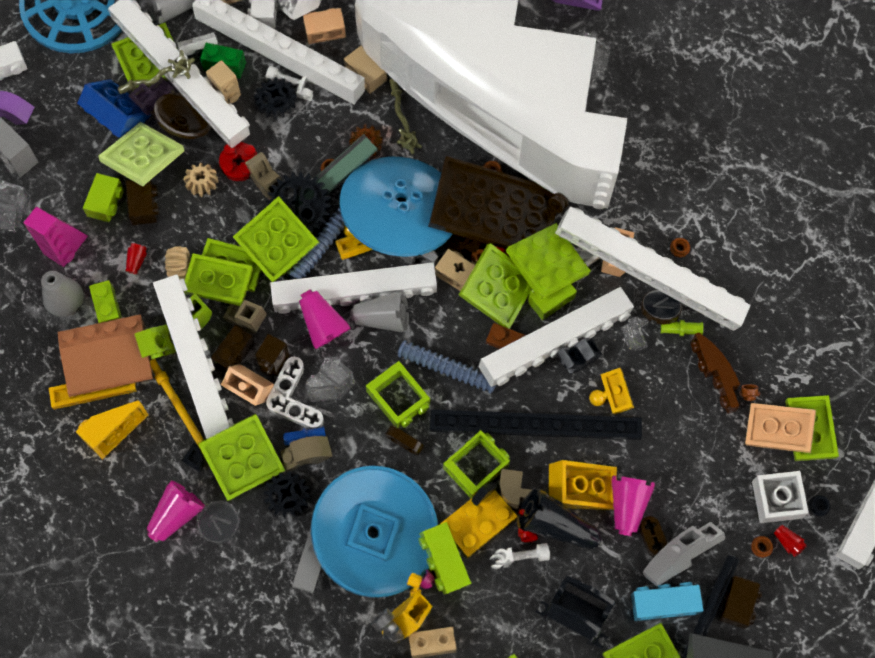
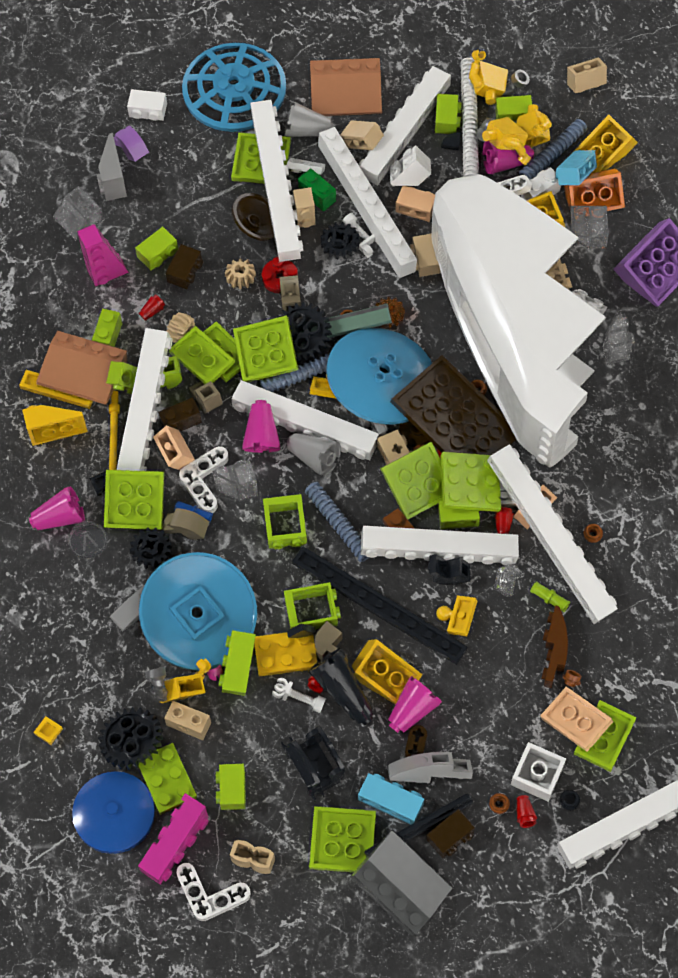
camera: 35 degrees right, 5 degrees down
(61, 294) = (79, 304): light grey cone -> none
(110, 107) = (209, 183): blue slope -> none
(141, 153) = (206, 229): yellowish green plate -> none
(146, 97) = (237, 187): clear purple brick -> none
(180, 66) = (275, 175): olive piece -> none
(272, 355) = (205, 436): dark brown brick -> none
(404, 440) = (267, 558): dark brown beam -> none
(407, 138) = (424, 328): olive piece -> none
(558, 202) = (511, 439): dark brown bush -> none
(596, 281) = (504, 520): none -> red cone
(660, 307) = (542, 570): black tile -> none

